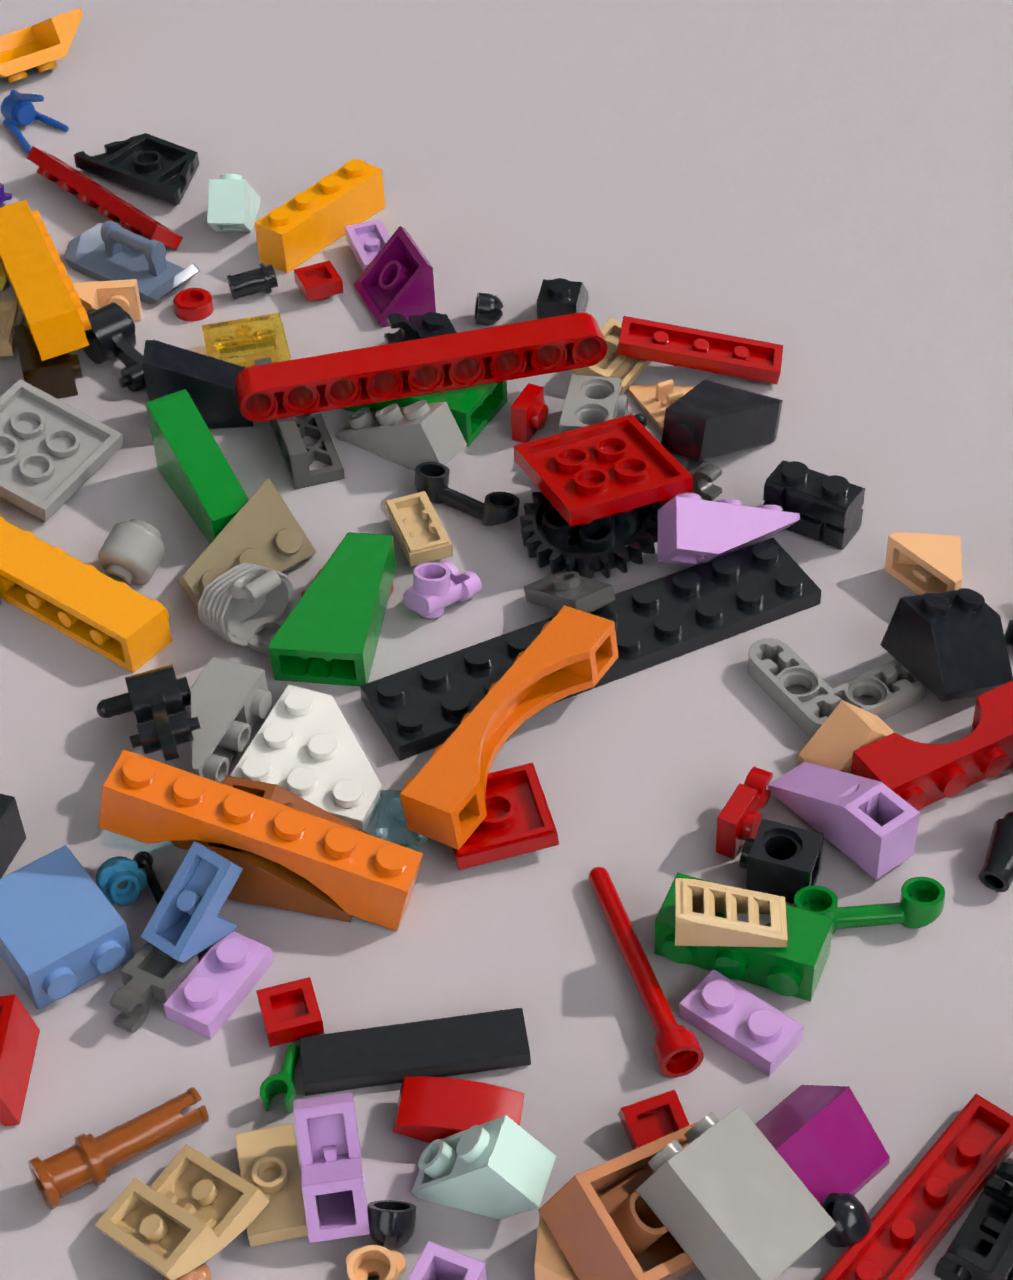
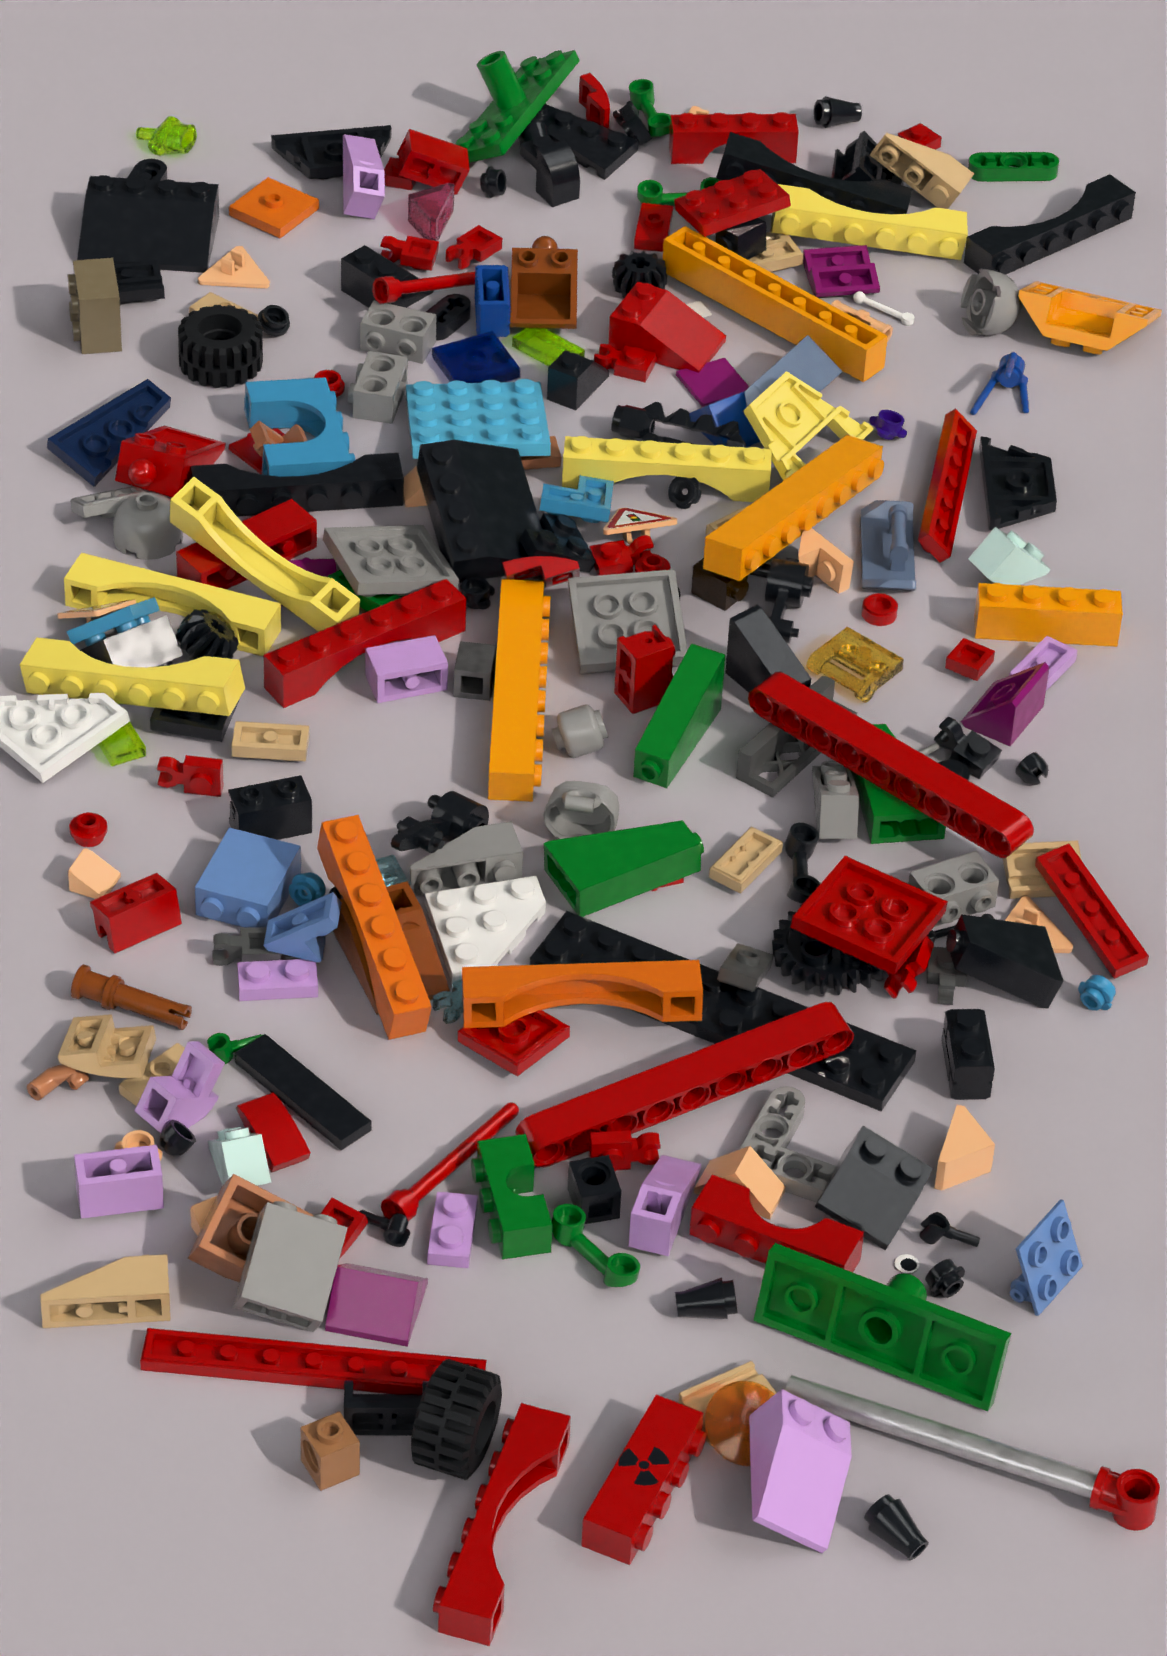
camera: 50 degrees right, 0 degrees up
(114, 465) = (643, 669): none -> red hinge
(252, 281) = (940, 627): black pin -> none
(258, 534) = (644, 784): dark tan wing -> none
(290, 1011) = (279, 1019): red plate -> none
(439, 586) = (689, 898): lavender plate -> none
(528, 413) = (923, 851): red plate -> none
(561, 298) = (1071, 809): black slope -> none
(697, 719) = (687, 1082): none -> red beam
(702, 530) = (871, 1008): lavender slope -> none
(702, 1070) = (395, 1228): none -> black hand
(706, 929) = (490, 1145): tan slope -> none
(795, 396) = (1097, 993): none -> dark azure plate
(850, 1219) = (339, 1331): black hinge -> none

